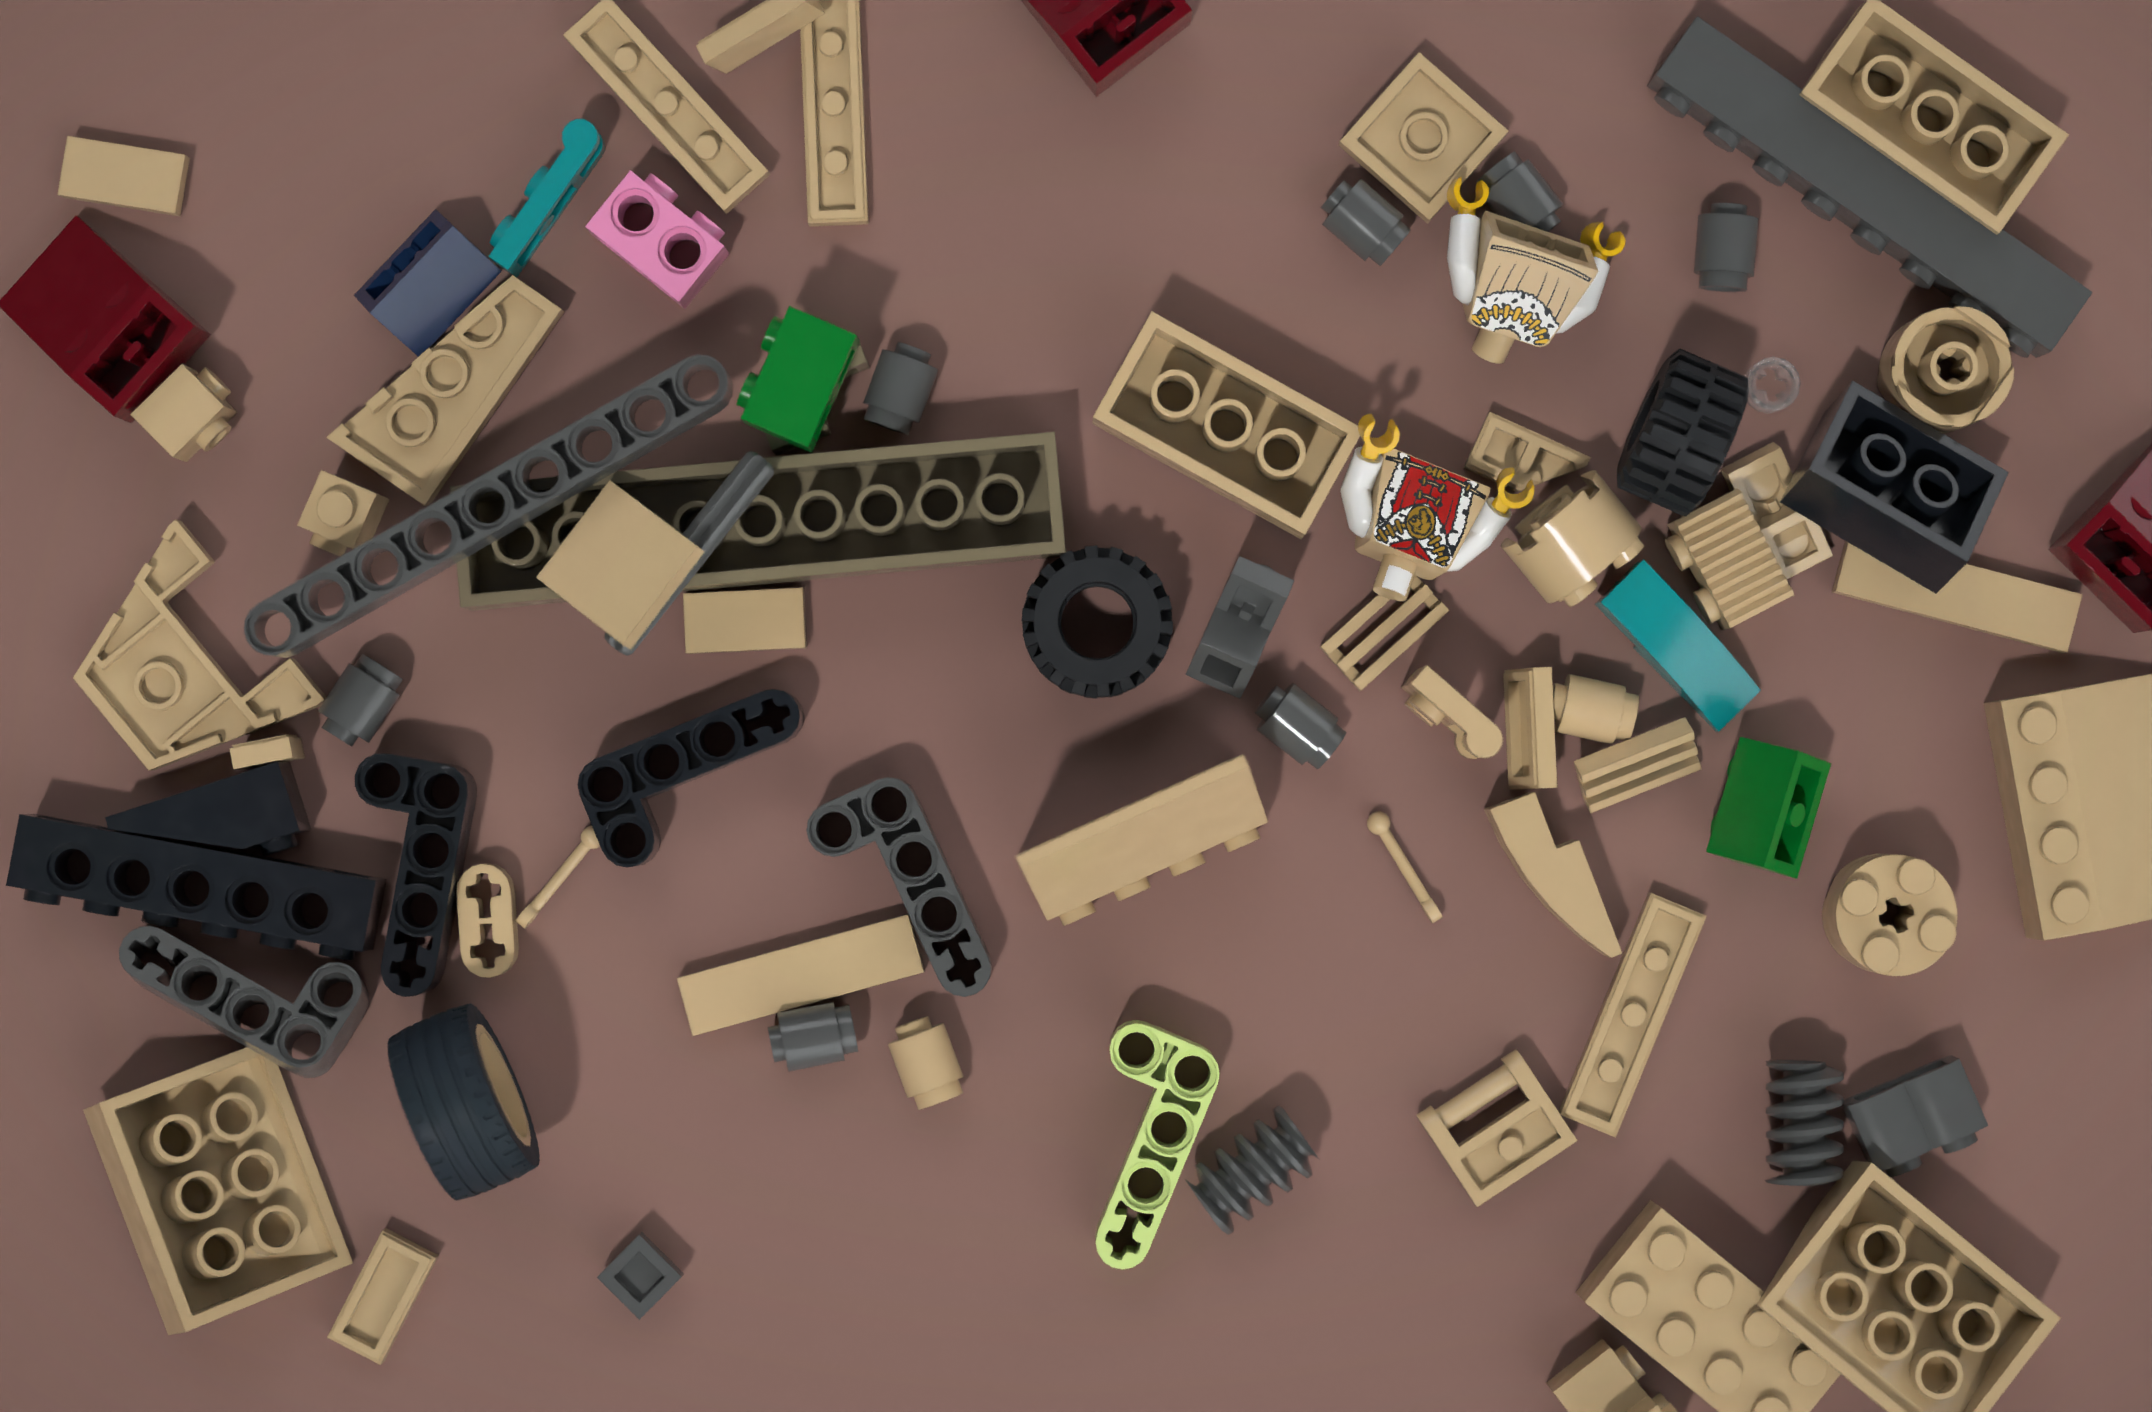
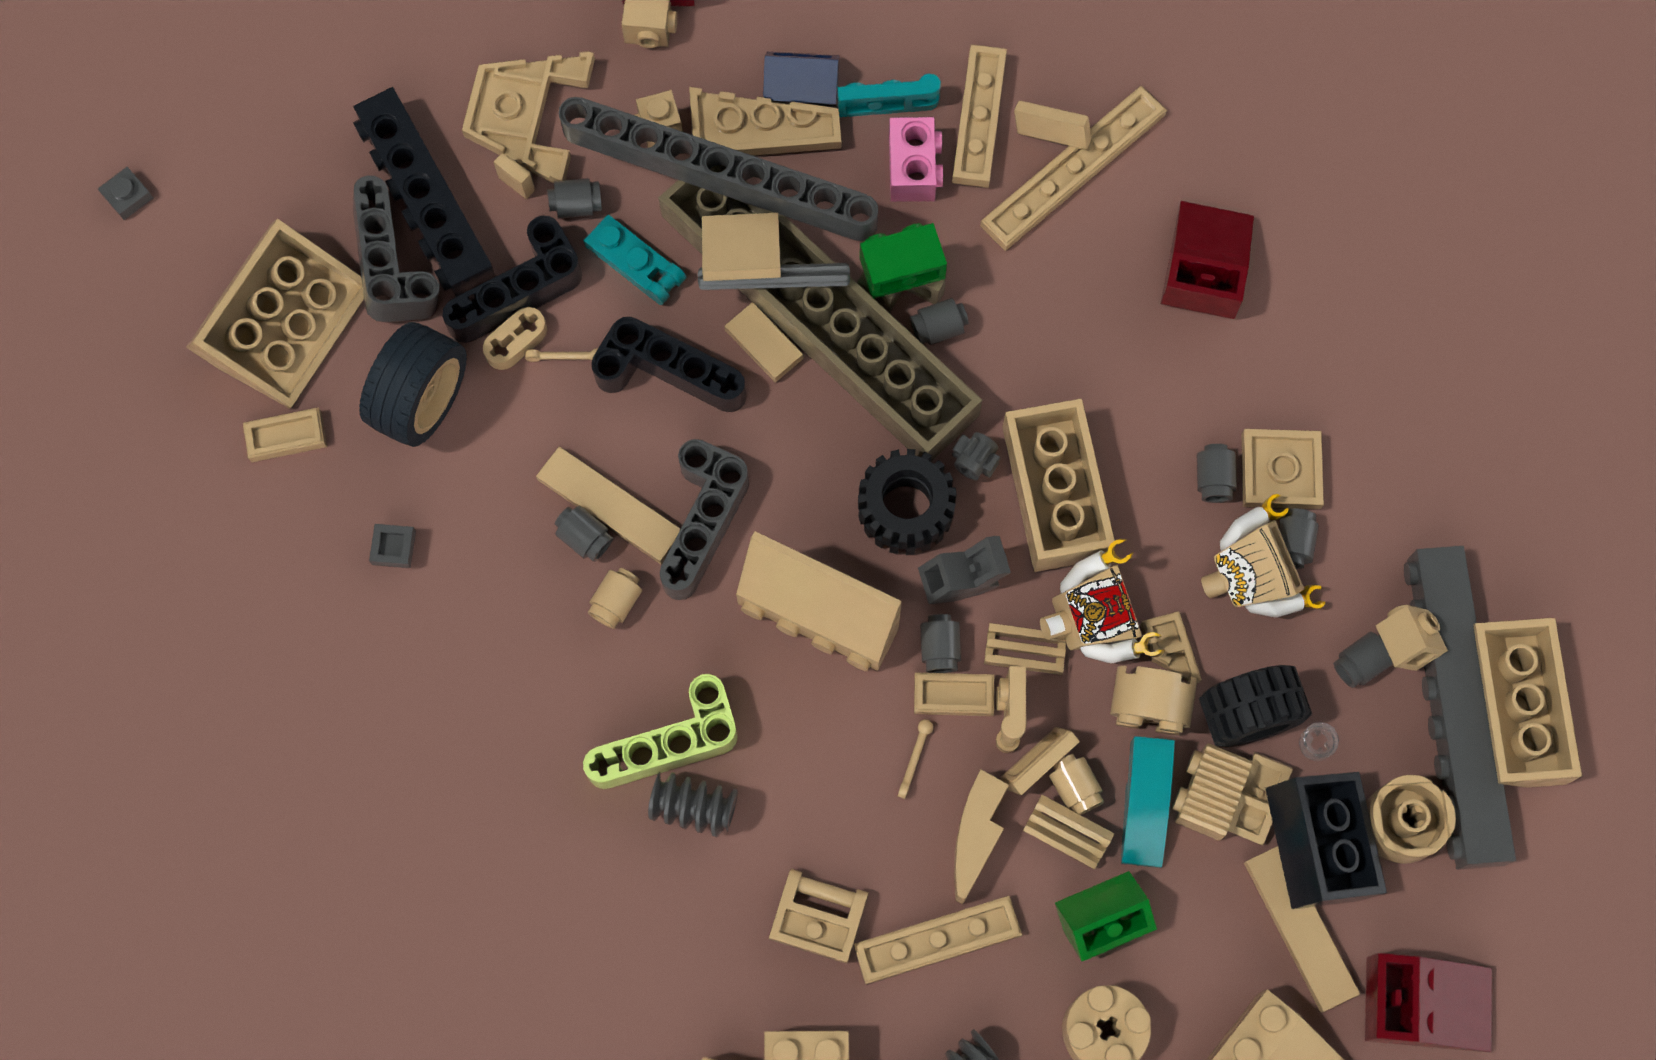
camera: 50 degrees right, 15 degrees down
(235, 812) = (477, 185): black slope -> none
(501, 691) = (634, 259): none -> teal plate
(1107, 490) = (976, 456): none -> dark grey gear
(1368, 757) = (954, 694): none -> tan tile
(1752, 178) = (1411, 637): none -> tan brick

